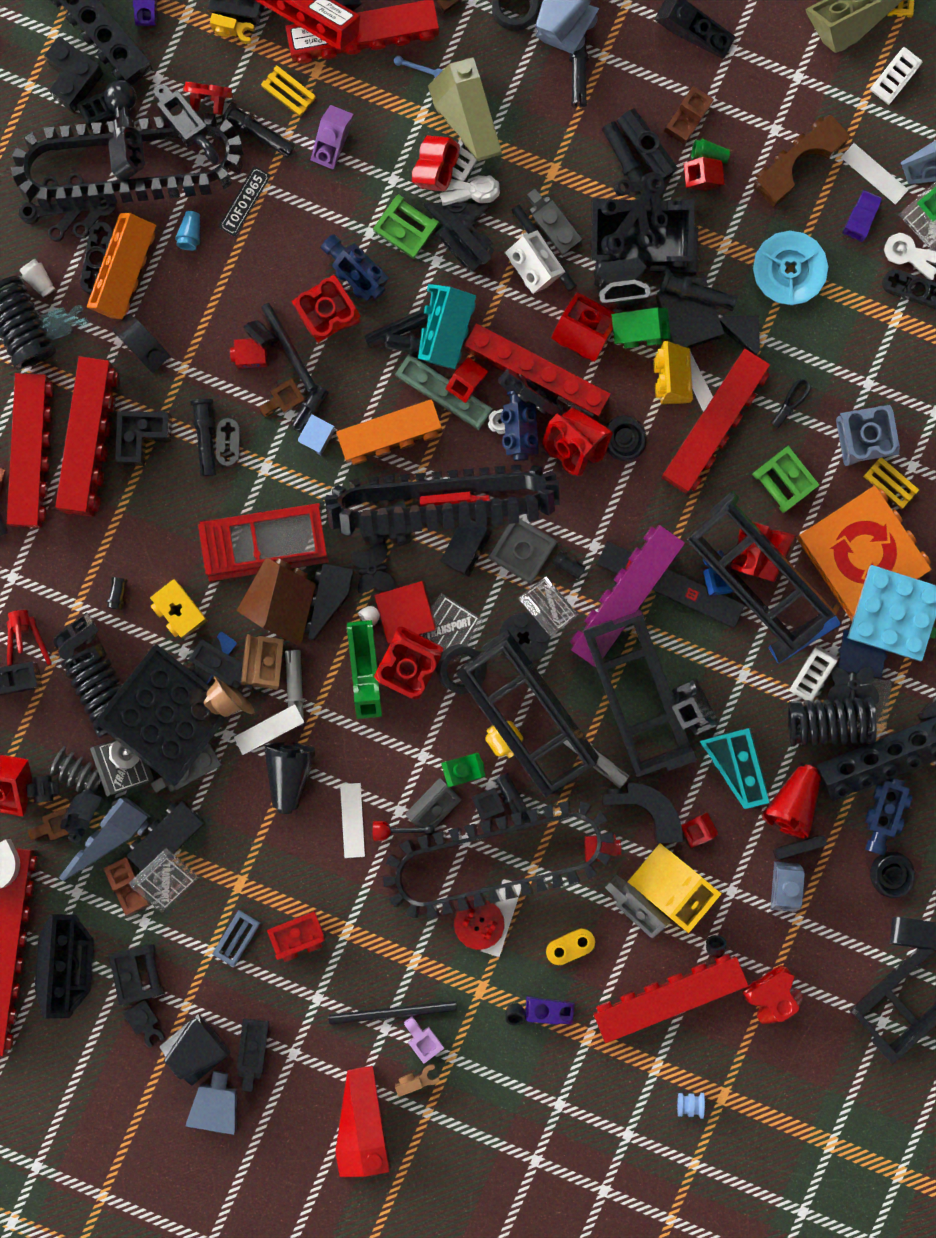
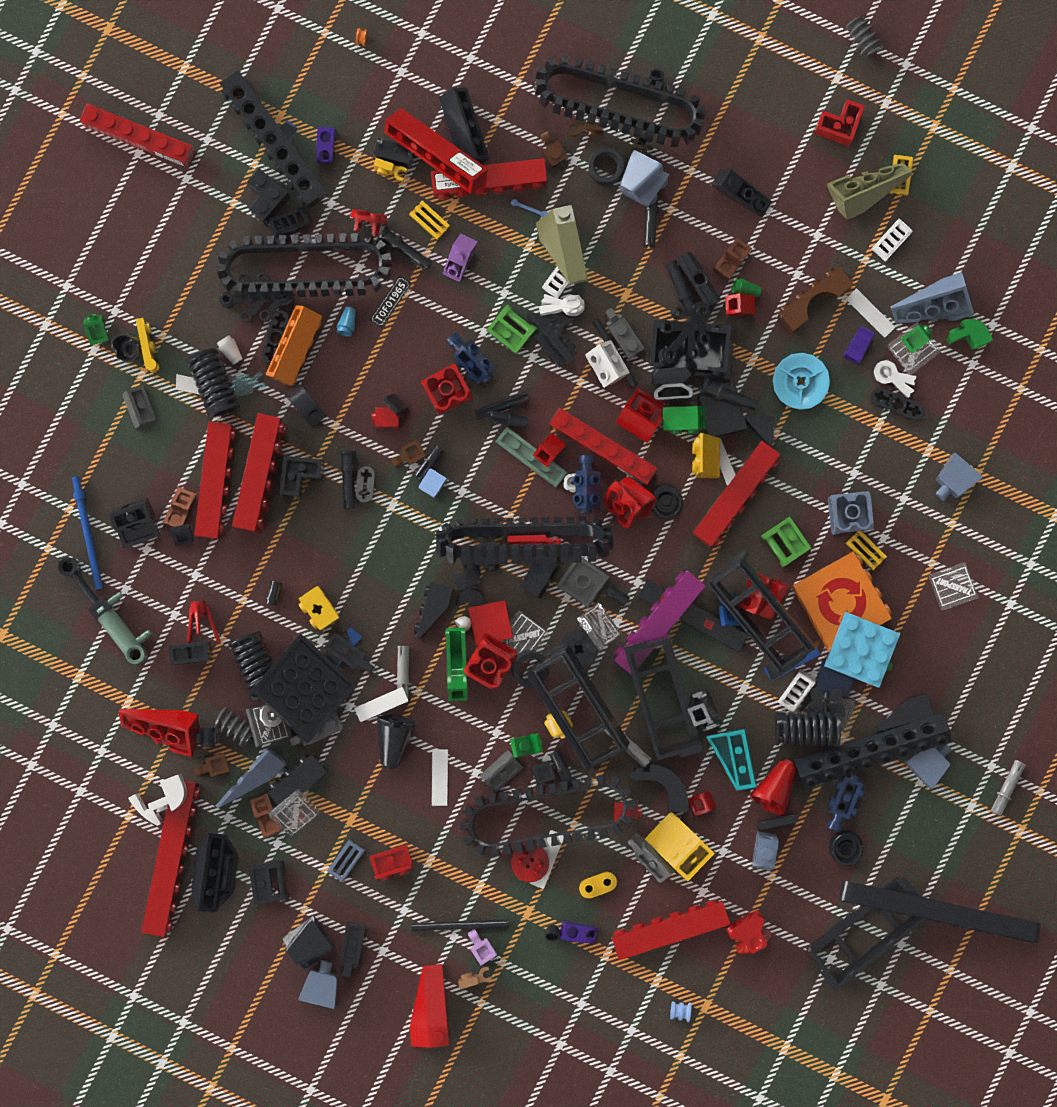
camera: 10 degrees right, 0 degrees up
(80, 631) = (243, 620): black plate -> none
(80, 814) = (234, 759): black cylinder -> none
(126, 144) = (304, 253): black beam -> none
(142, 1020) = (271, 916): black plate -> none
(187, 123) = (351, 241): piece -> none
(226, 700) = (351, 680): medium nougat piece -> none
(241, 543) = (386, 562): piece -> none
(262, 662) = (379, 653): medium nougat plate -> none
(279, 600) = (396, 607): reddish brown slope -> none
(288, 347) = (416, 415): black bar -> none
(382, 830) = (462, 787): hinge -> none
(389, 431) = (488, 484): orange brick -> none
(435, 163) = (537, 283): red brick -> none
(446, 325) = (536, 408): teal wedge -> none
(530, 392) = (597, 463): black hinge -> none
(716, 946) = (708, 892): black hinge -> none
(786, 409) = (790, 488): black piece -> none

